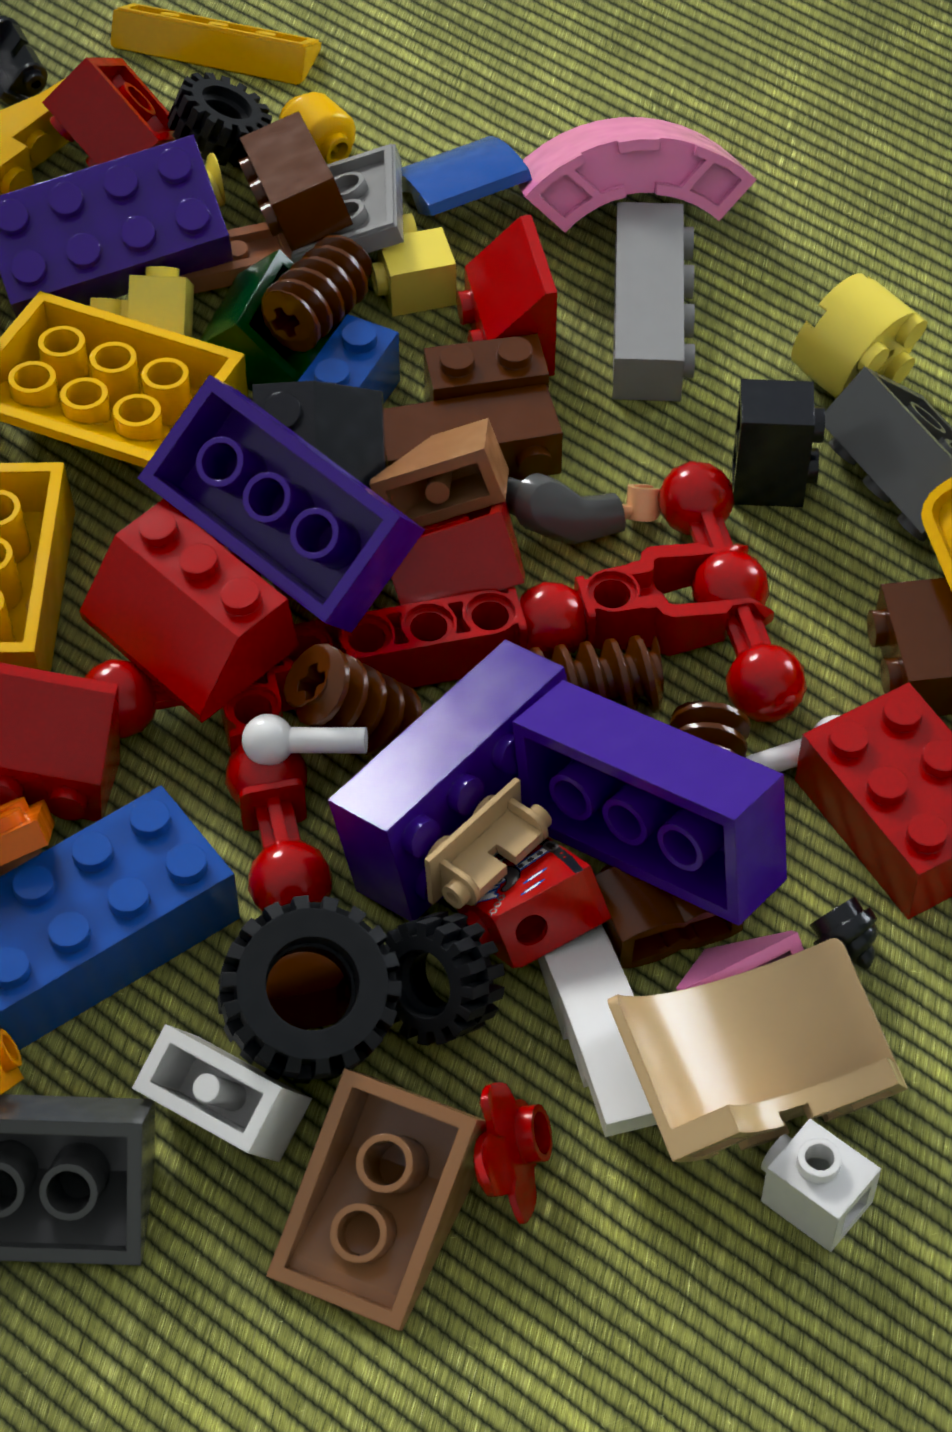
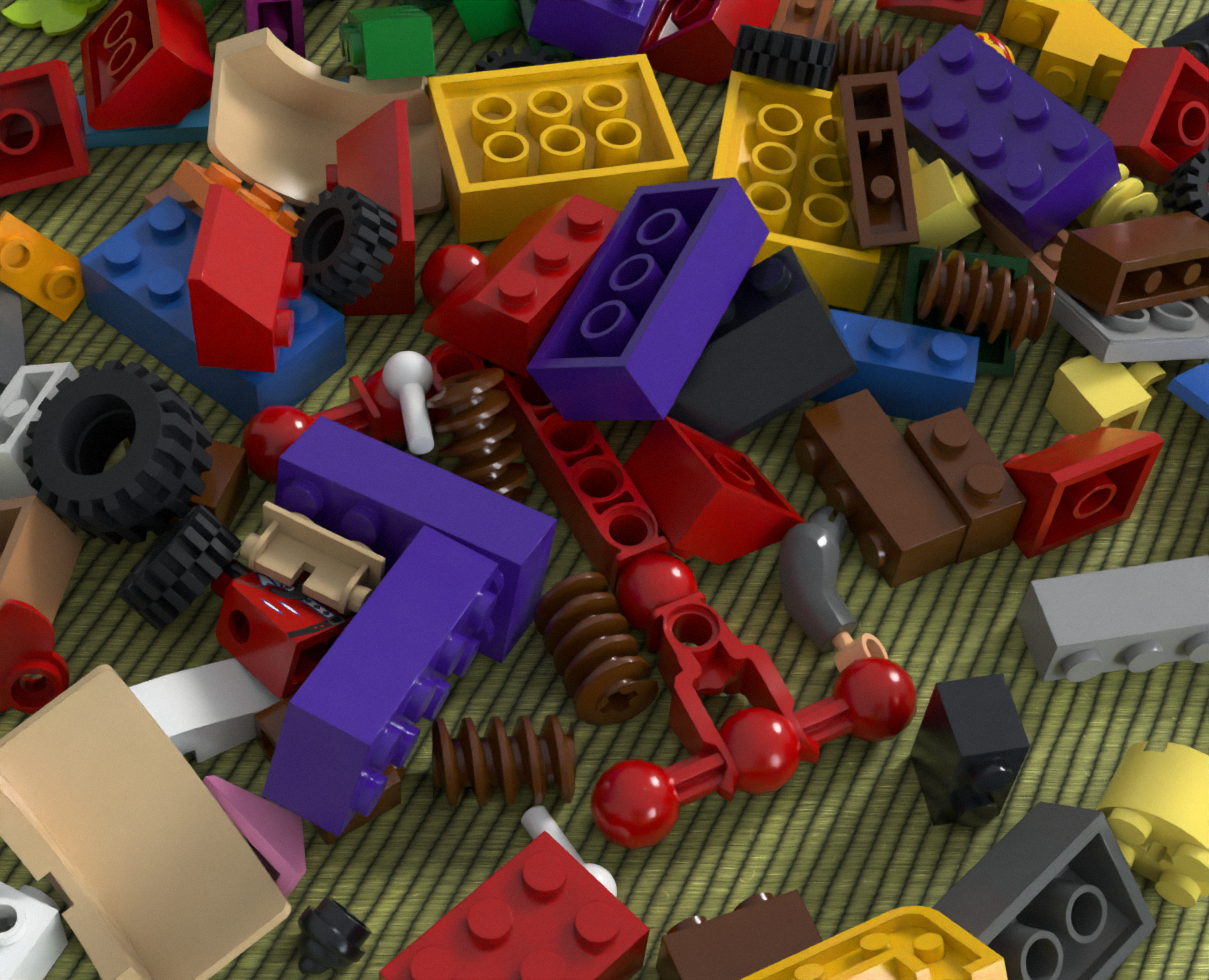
camera: 70 degrees right, 0 degrees up
(55, 787) = (343, 245): none -> black tyre
(135, 311) = (874, 159): none -> reddish brown slope
(144, 839) = (241, 286): none -> red slope
(447, 475) = (789, 455): medium nougat slope -> none

